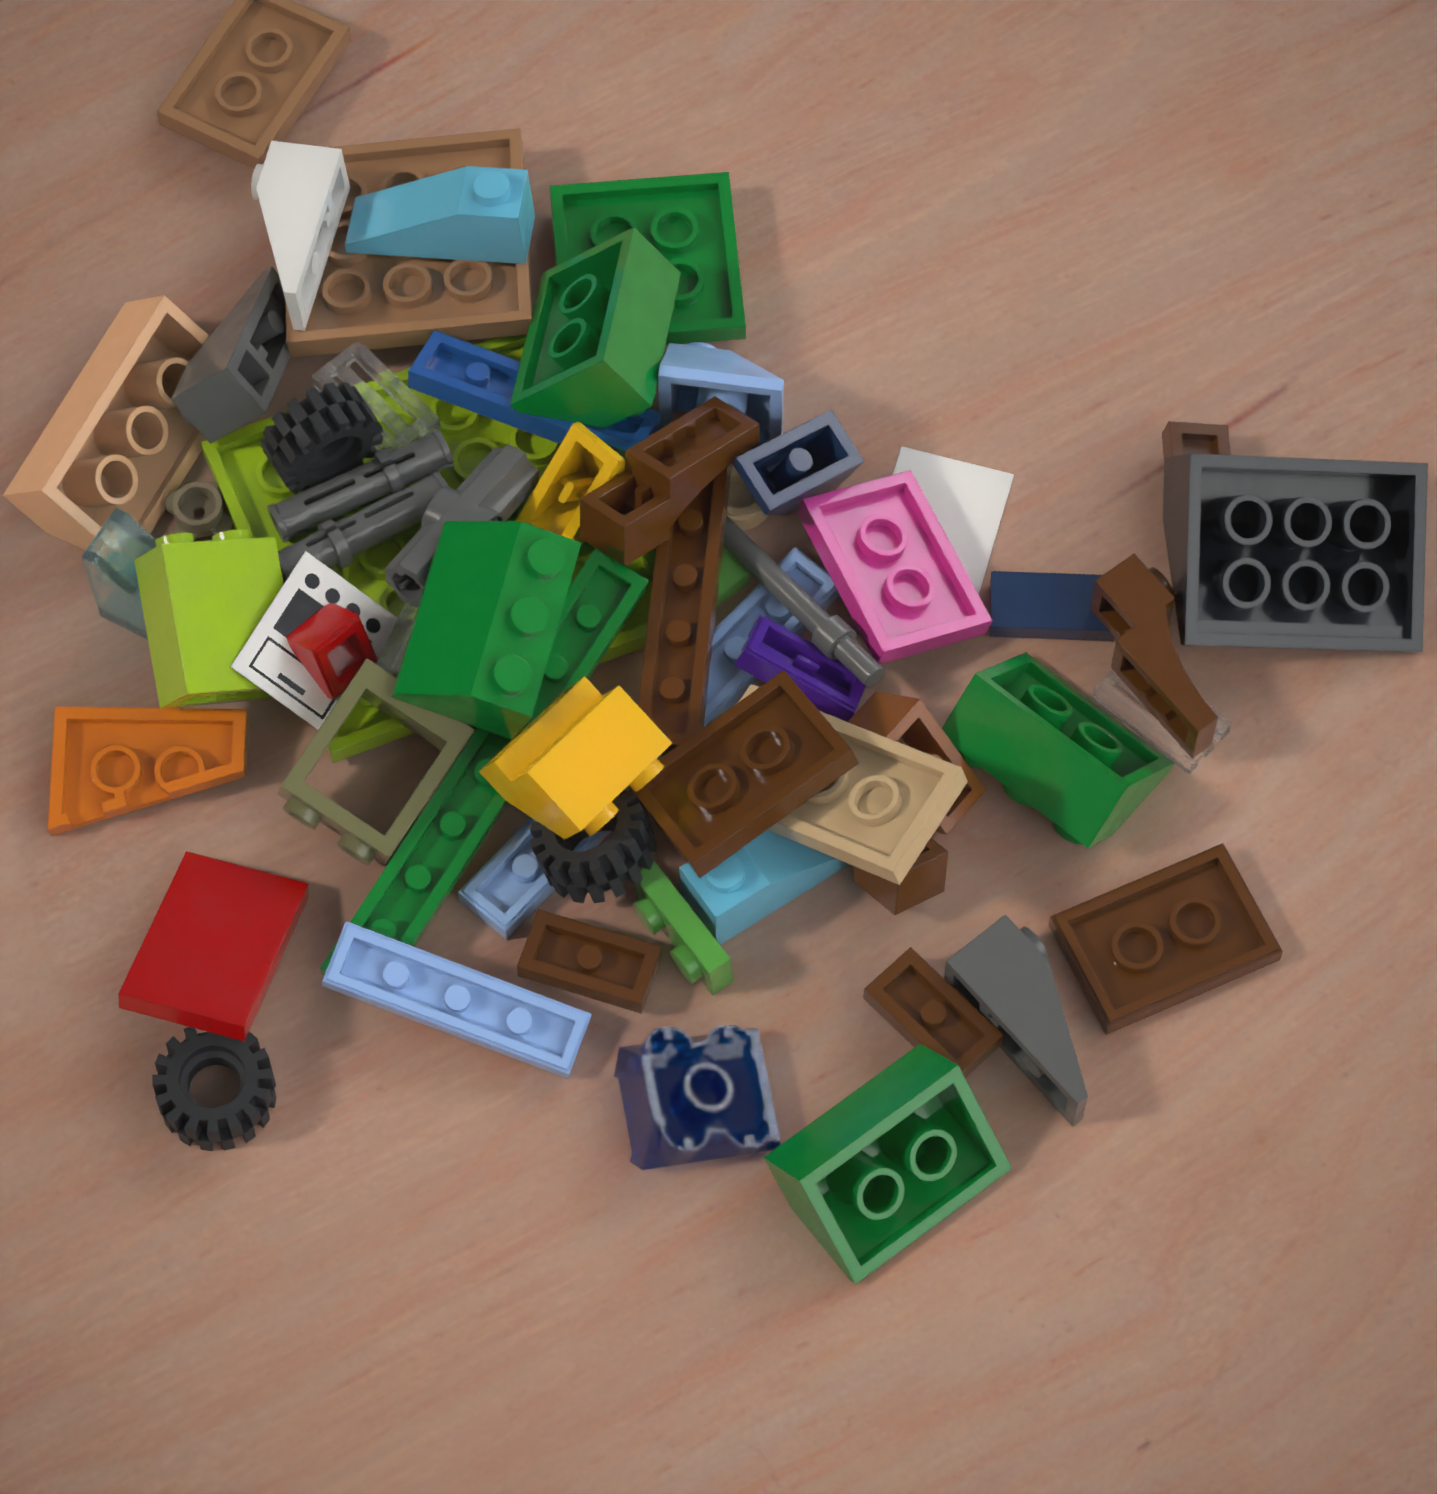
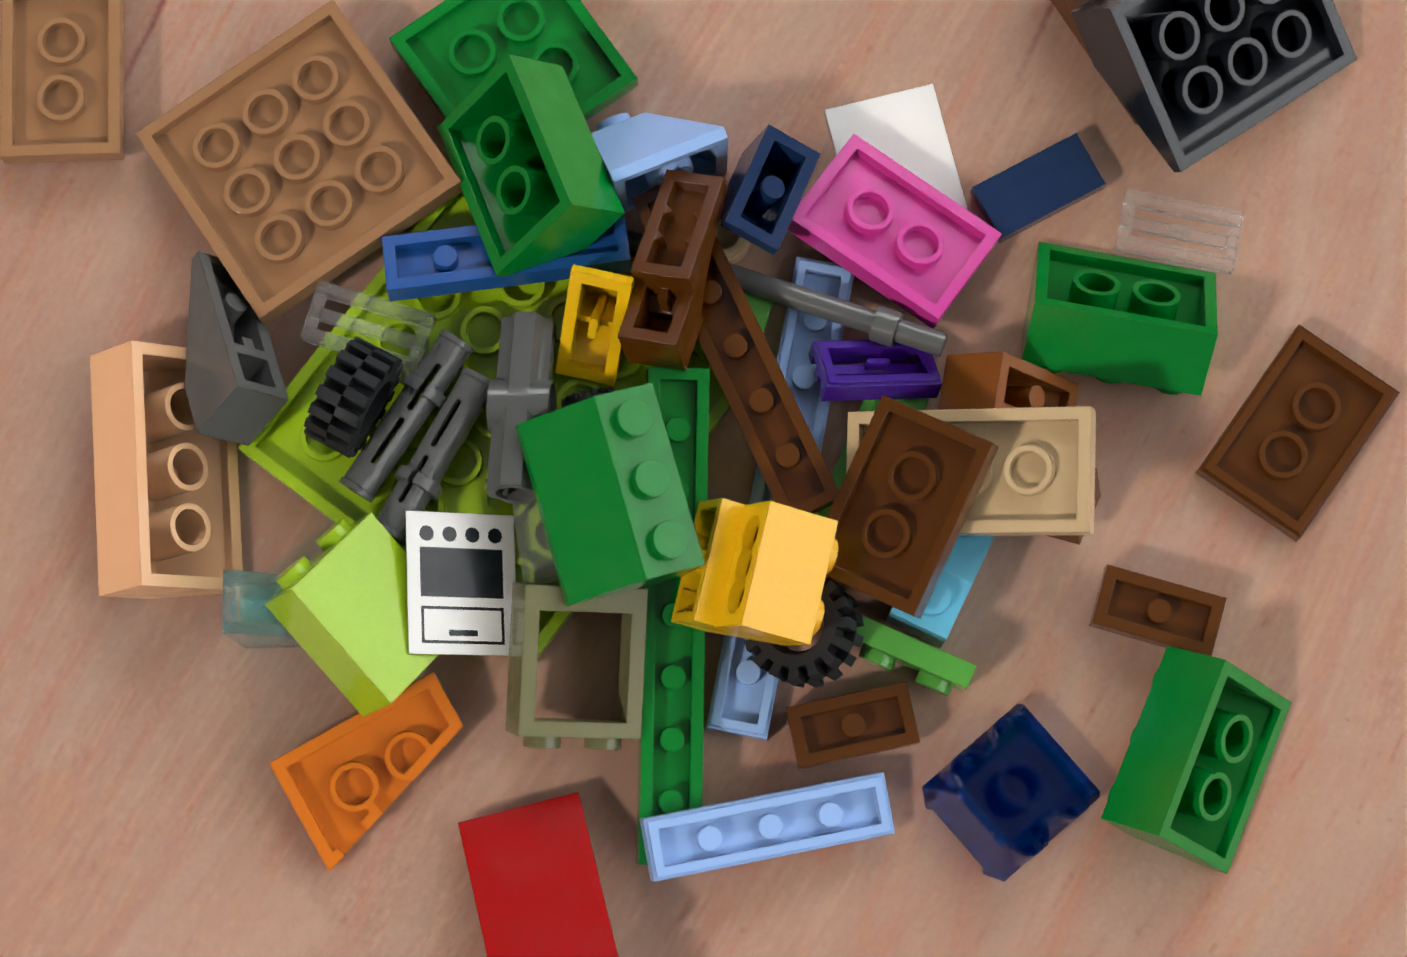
camera: 30 degrees left, 15 degrees up
(196, 497) = (255, 510): dark tan plate -> none
(301, 204) = (192, 185): white slope -> none
(332, 647) = (478, 580): red slope -> none
(448, 216) = (328, 127): medium azure slope -> none
(1014, 988) = (1218, 556): dark grey slope -> none
(1137, 610) = (1123, 163): reddish brown slope -> none

